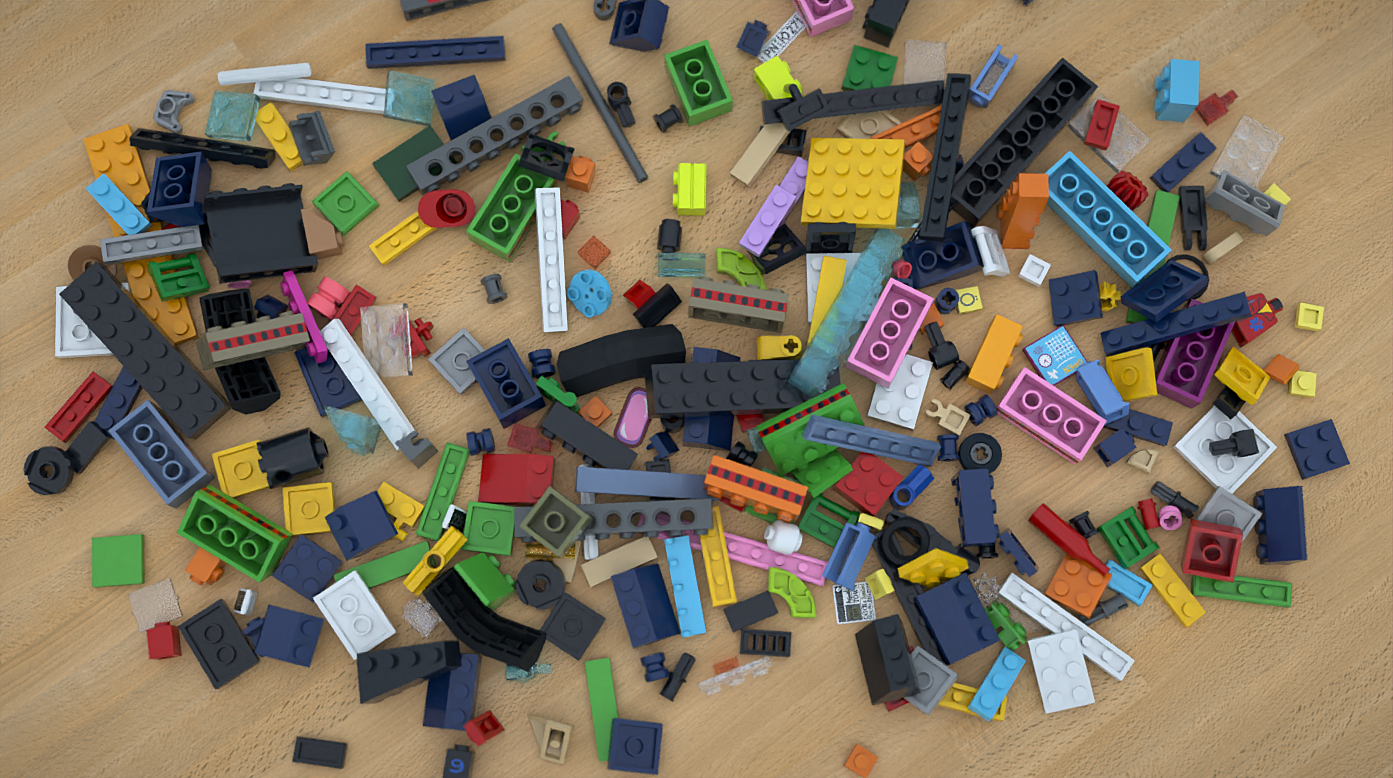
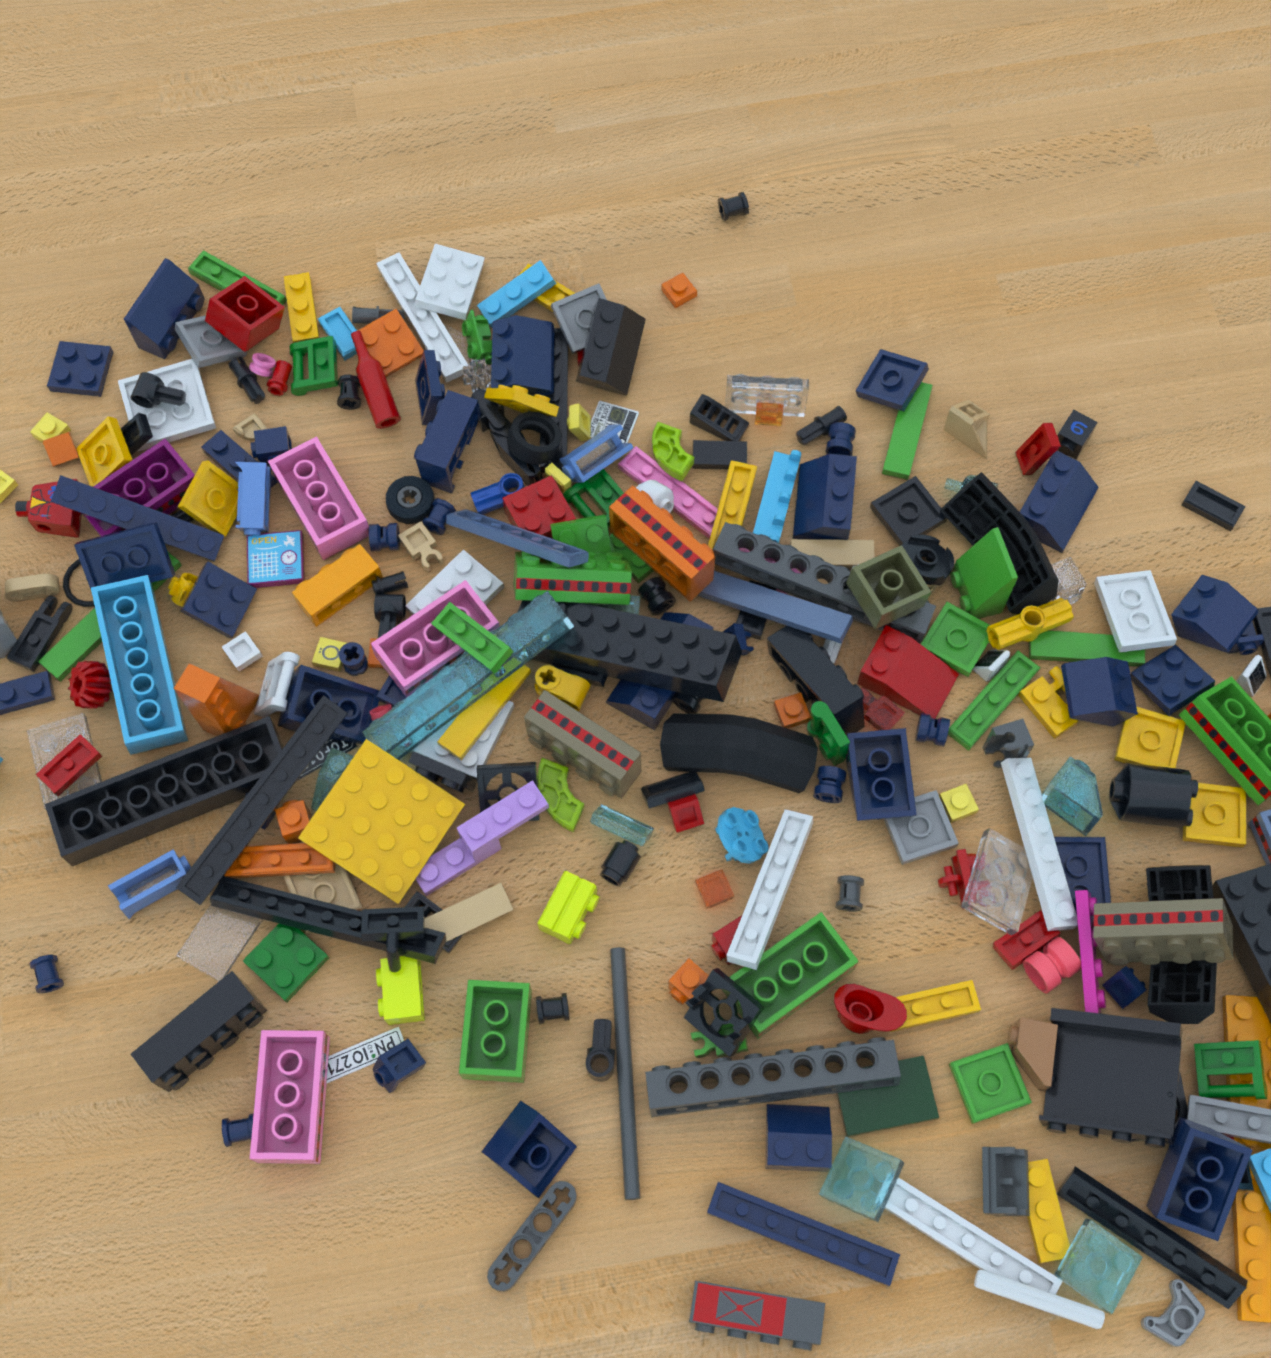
camera: 150 degrees left, 10 degrees down
(397, 669) = (1100, 531): black wedge -> none
(440, 395) = (958, 803): none -> light yellow plate
(633, 419) = (751, 689): sticker -> none
(857, 329) = (472, 637): none -> bright green plate

